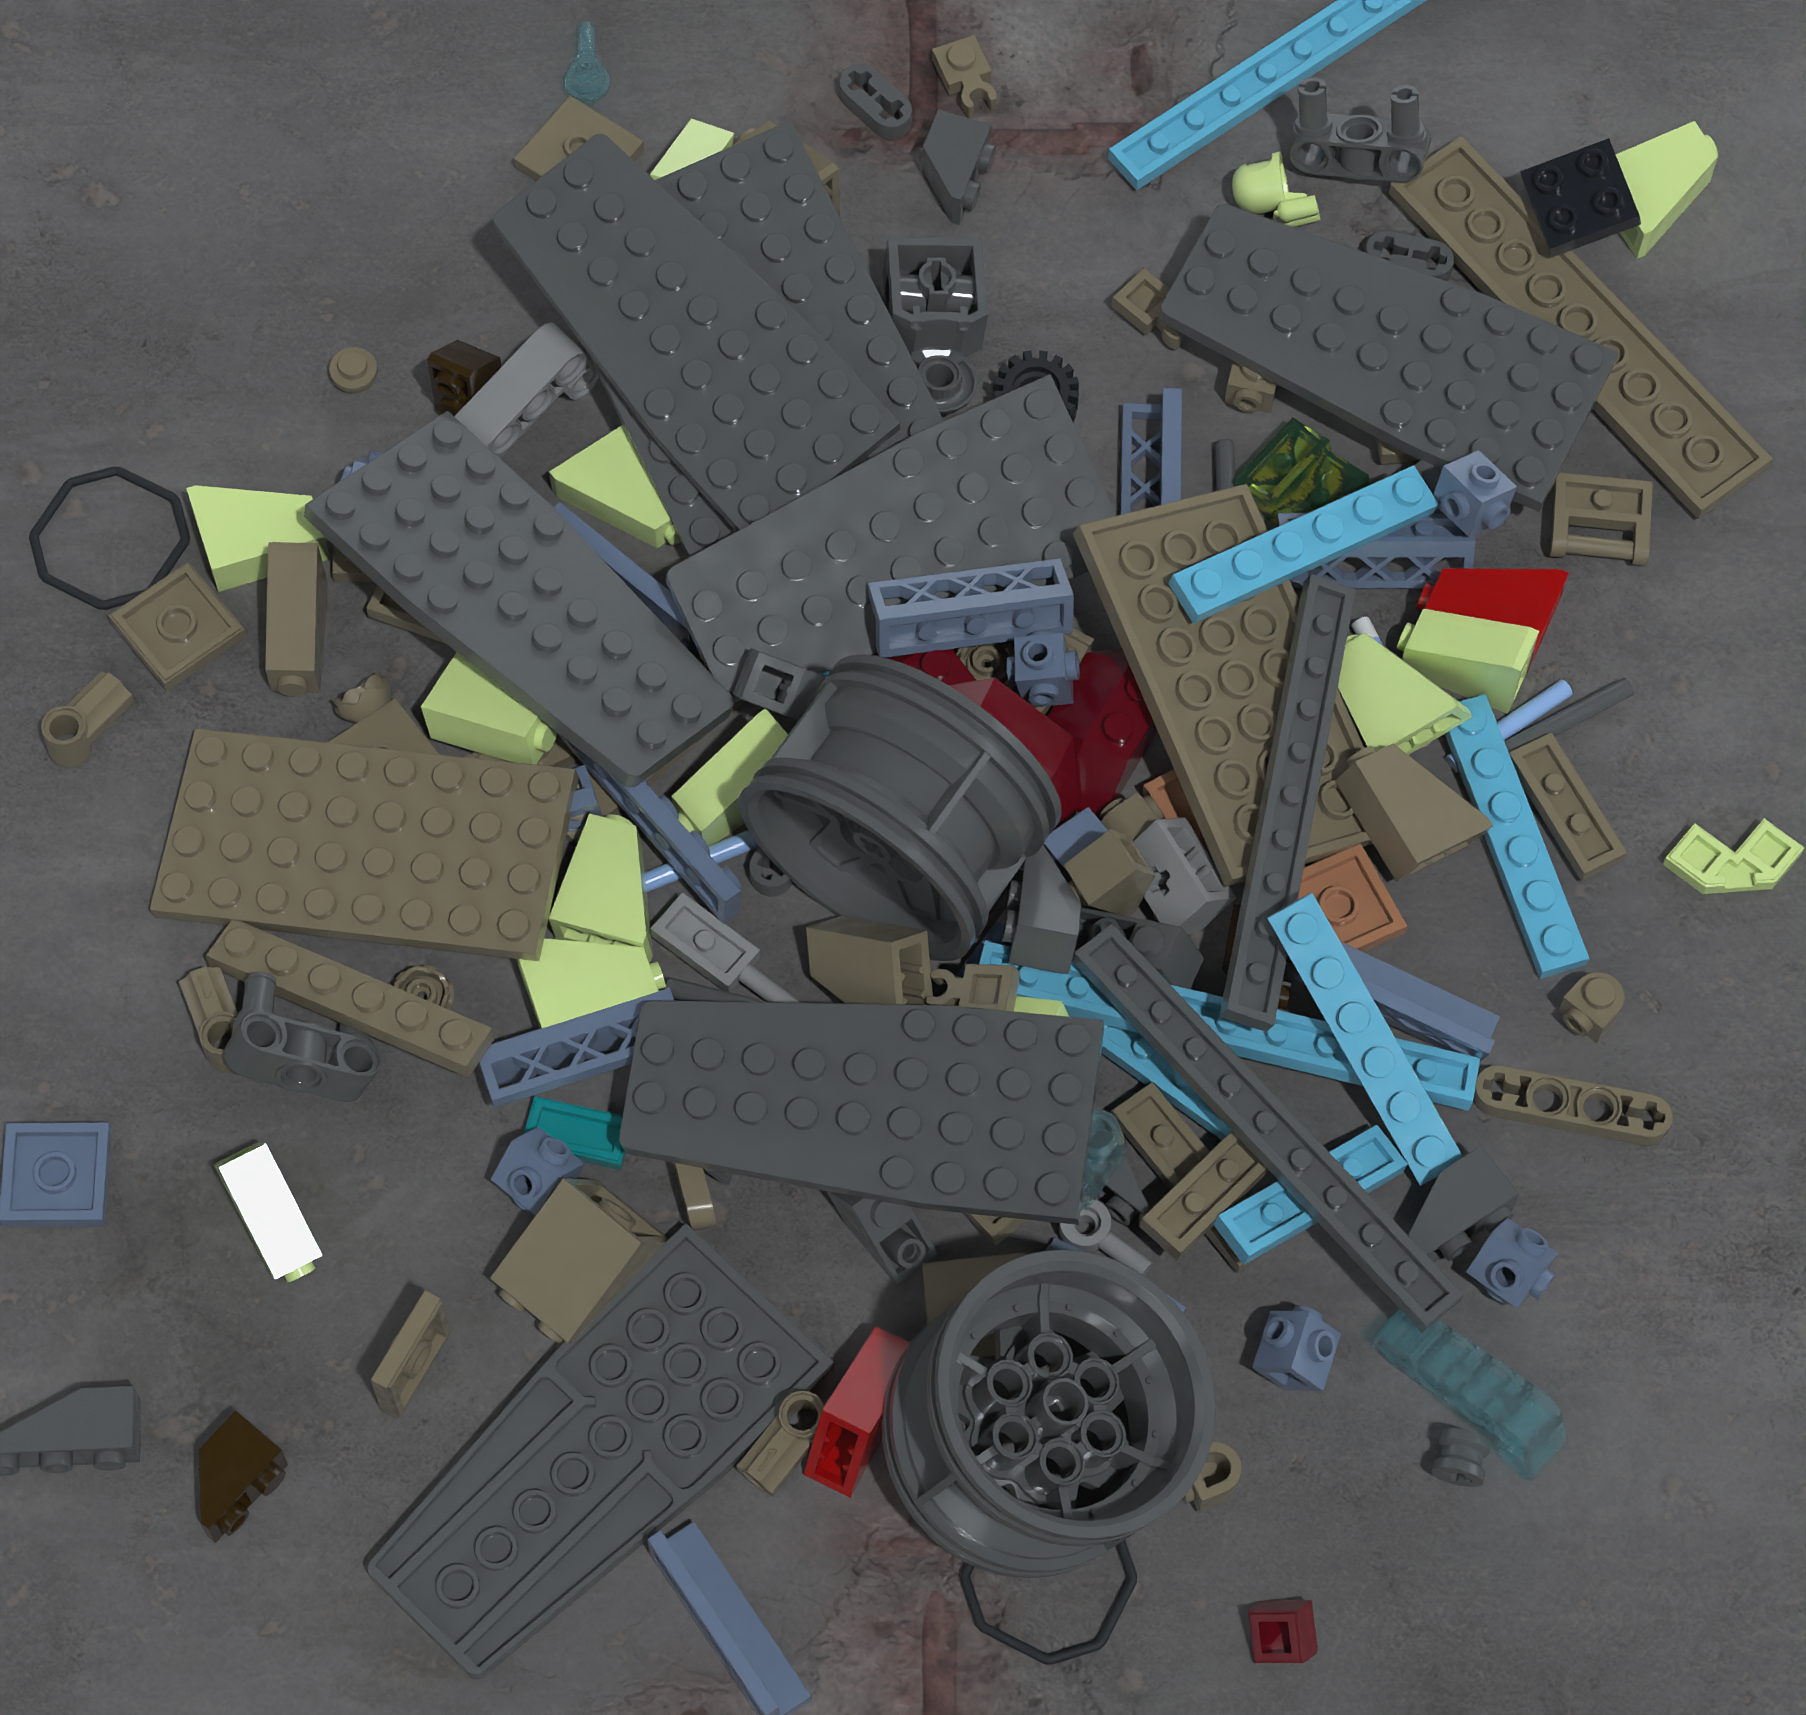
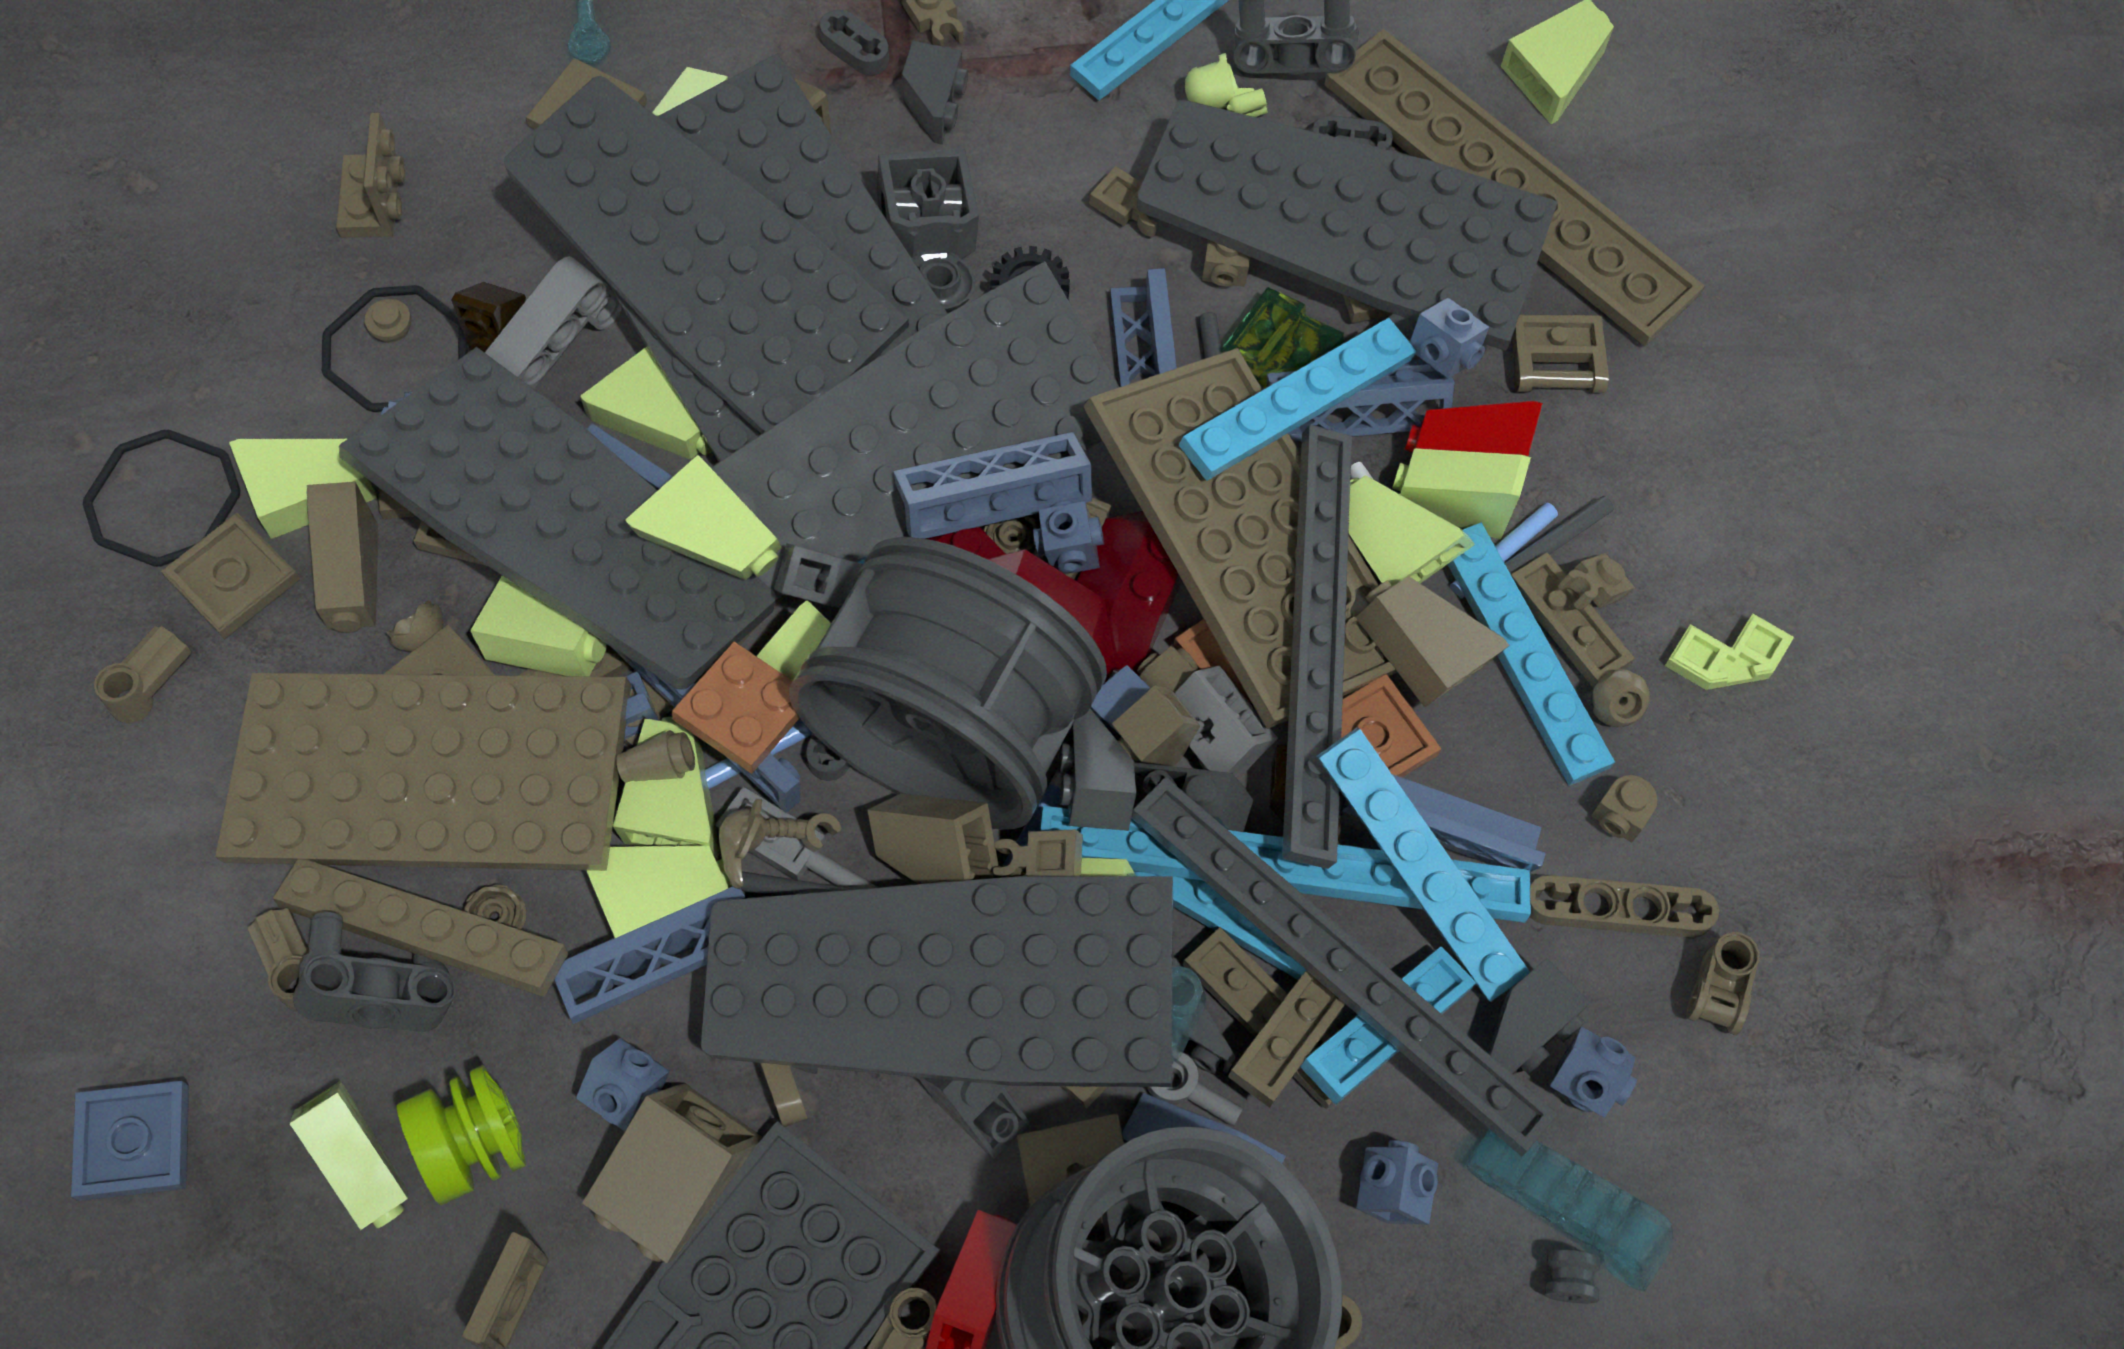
camera: 10 degrees left, 0 degrees up
(320, 352) = (357, 306): none -> black piece
(342, 223) = (370, 186): none -> dark tan bracket
(380, 1200) = (457, 1136): none -> lime wheel
(586, 1131) = (666, 1036): teal tile -> none
(600, 854) = (657, 759): none -> dark tan cone
(671, 619) = (707, 523): none -> yellowish green slope
(683, 933) = (747, 828): none -> dark tan piece
(687, 811) = (739, 707): none -> nougat plate
(1580, 197) = (1499, 71): black plate -> none
(1598, 880) = (1610, 690): none -> dark tan plate
(1603, 767) = (1597, 580): none -> dark tan plate
(1664, 1198) = (1723, 992): none -> dark tan piece

